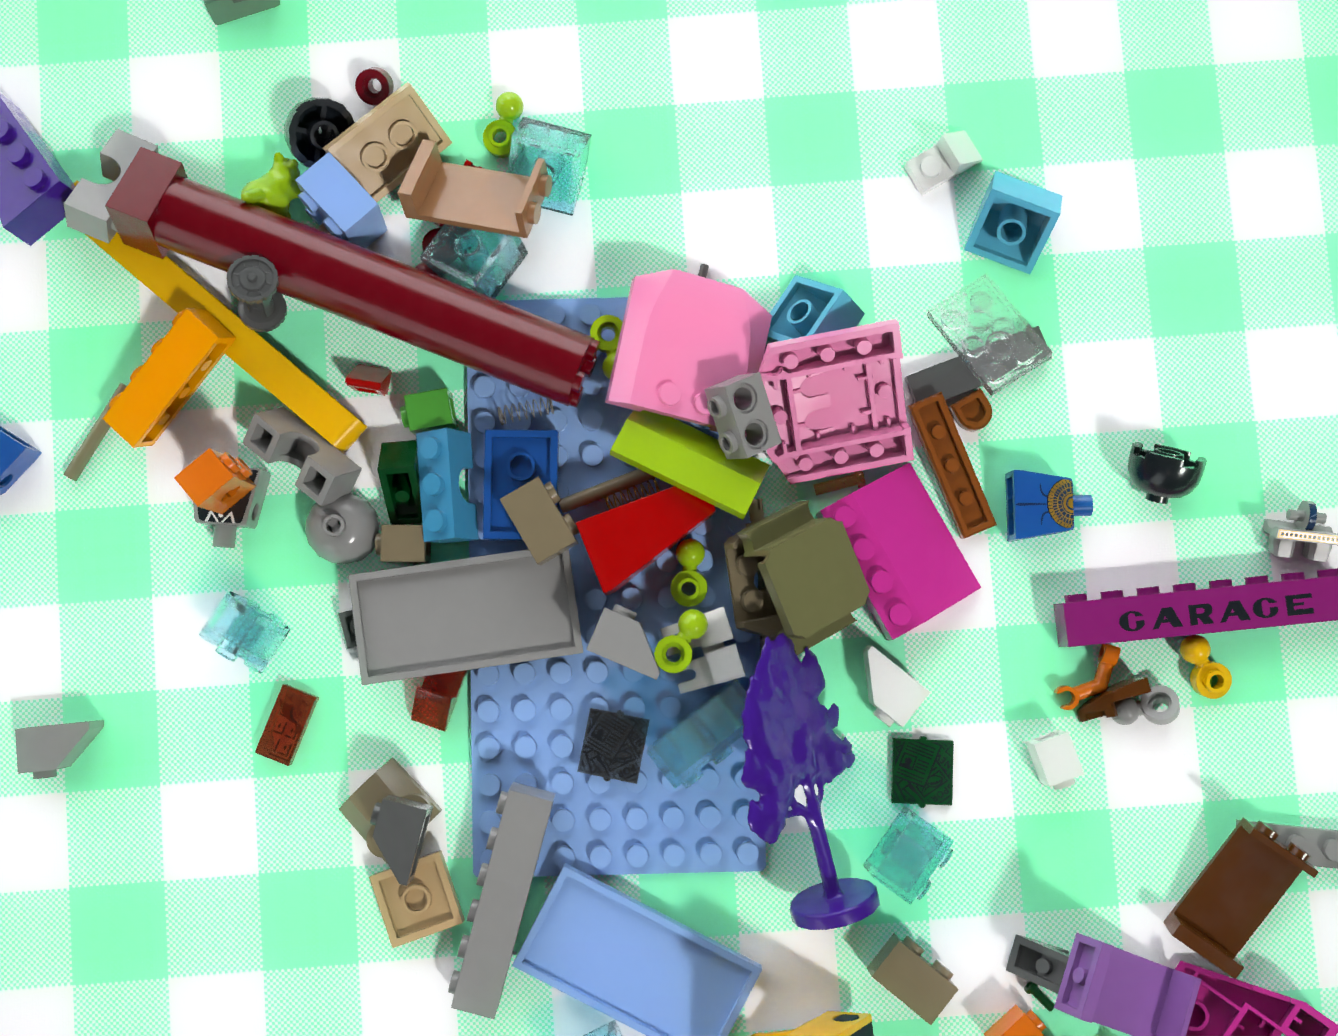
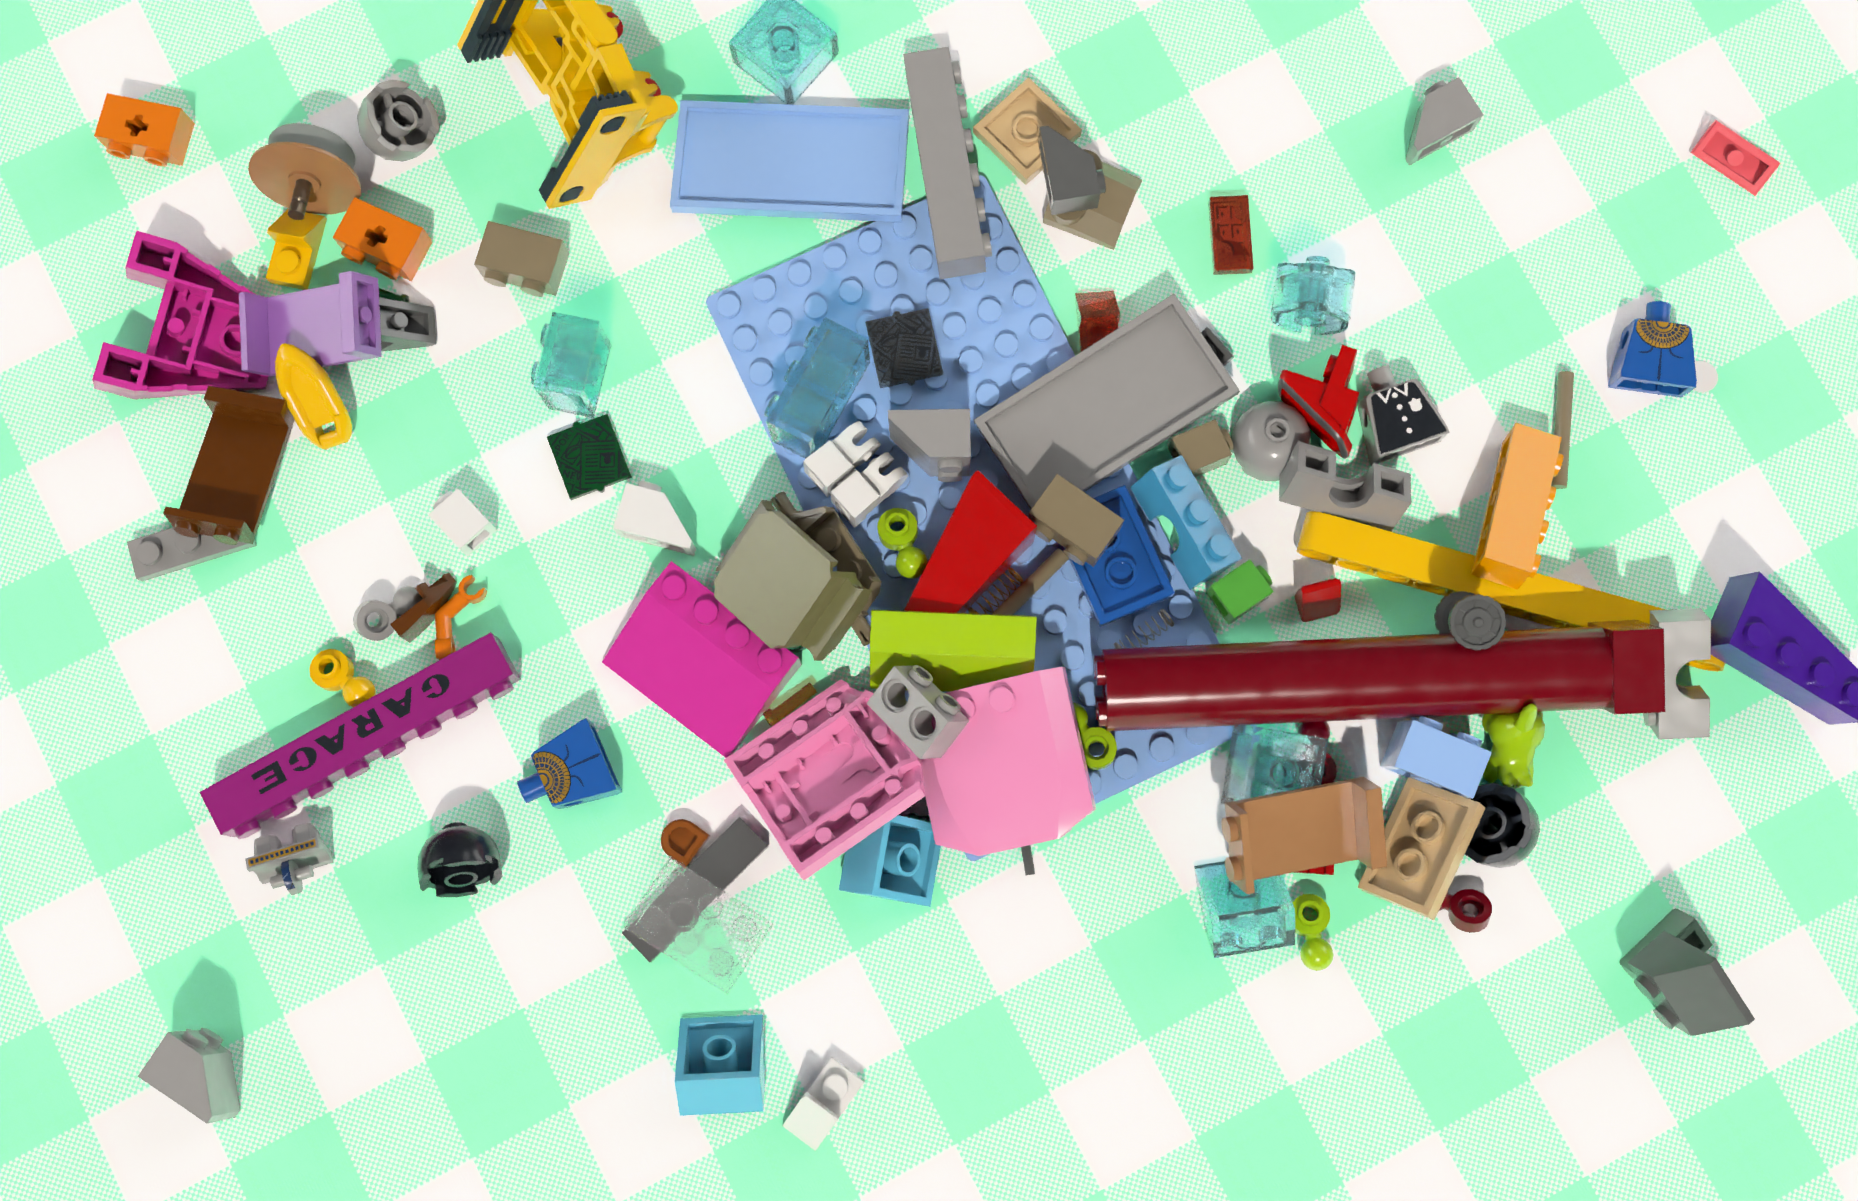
camera: 155 degrees right, 5 degrees down
(216, 480) = (1411, 415): orange brick -> none
(280, 528) = (1325, 404): none -> red piece
(400, 481) = (1237, 509): dark green slope -> none
(691, 626) = (877, 483): lime plate -> none
(795, 746) = (733, 415): dark purple plant -> none
(951, 465) = (683, 772): dark orange tile -> none
(1146, 928) = (311, 397): none -> yellow piece

